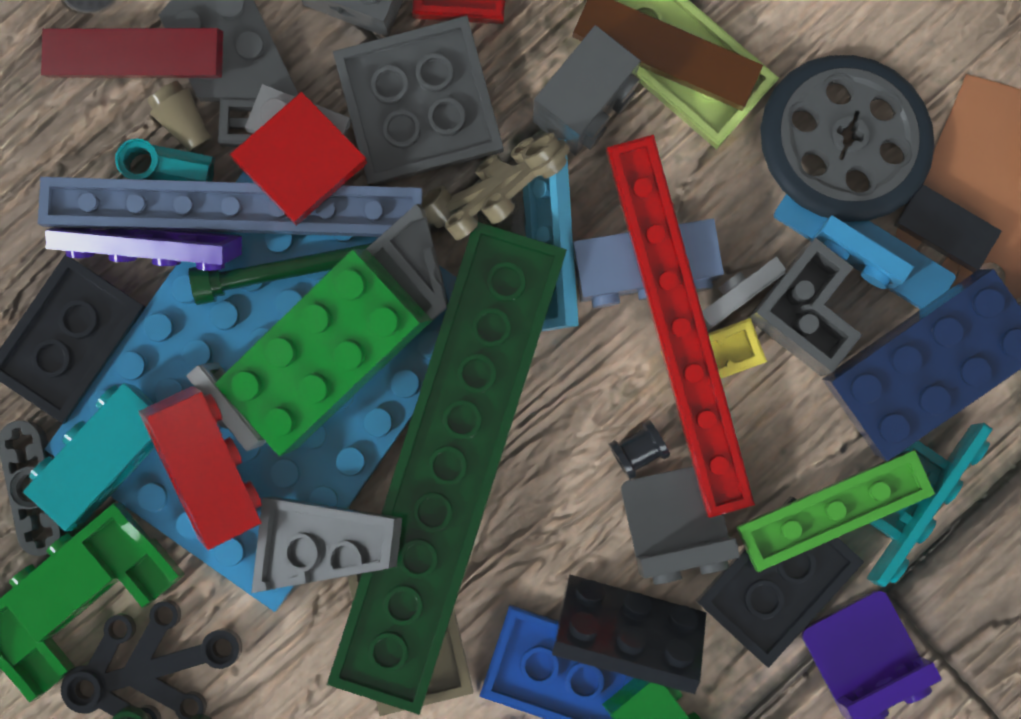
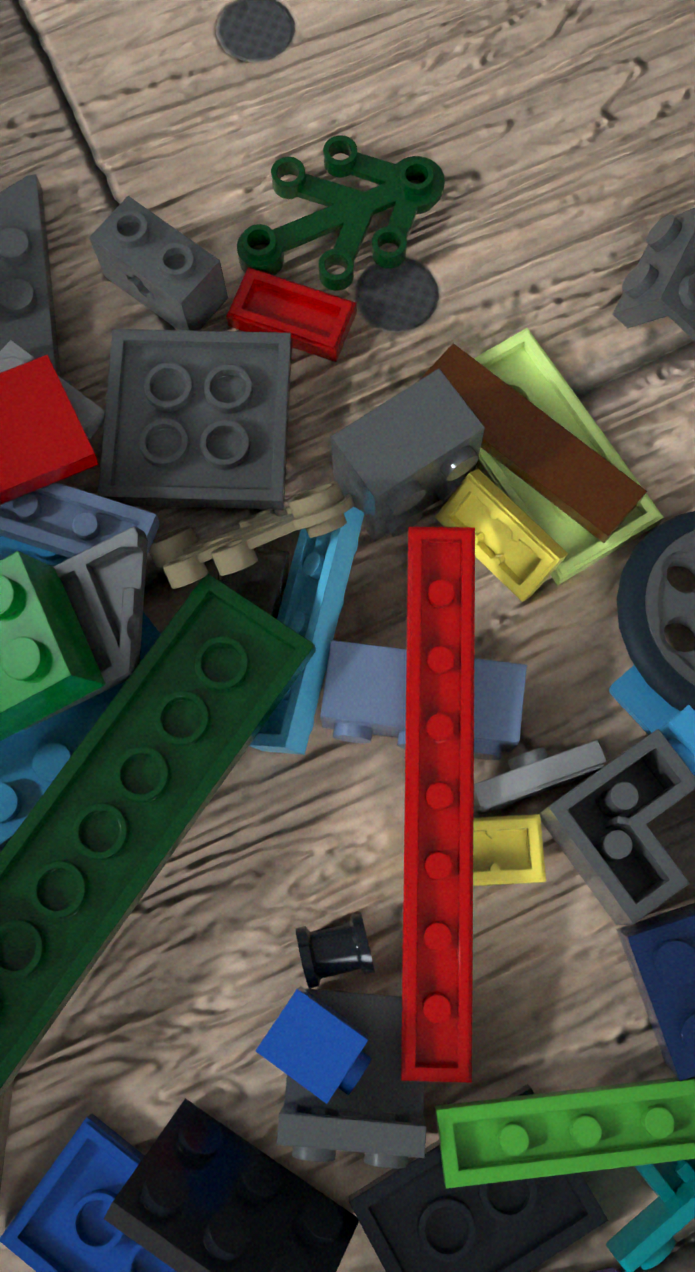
camera: 20 degrees right, 10 degrees down
(648, 512) = (316, 1046): none -> blue brick
(674, 127) = (504, 535): none -> light yellow plate

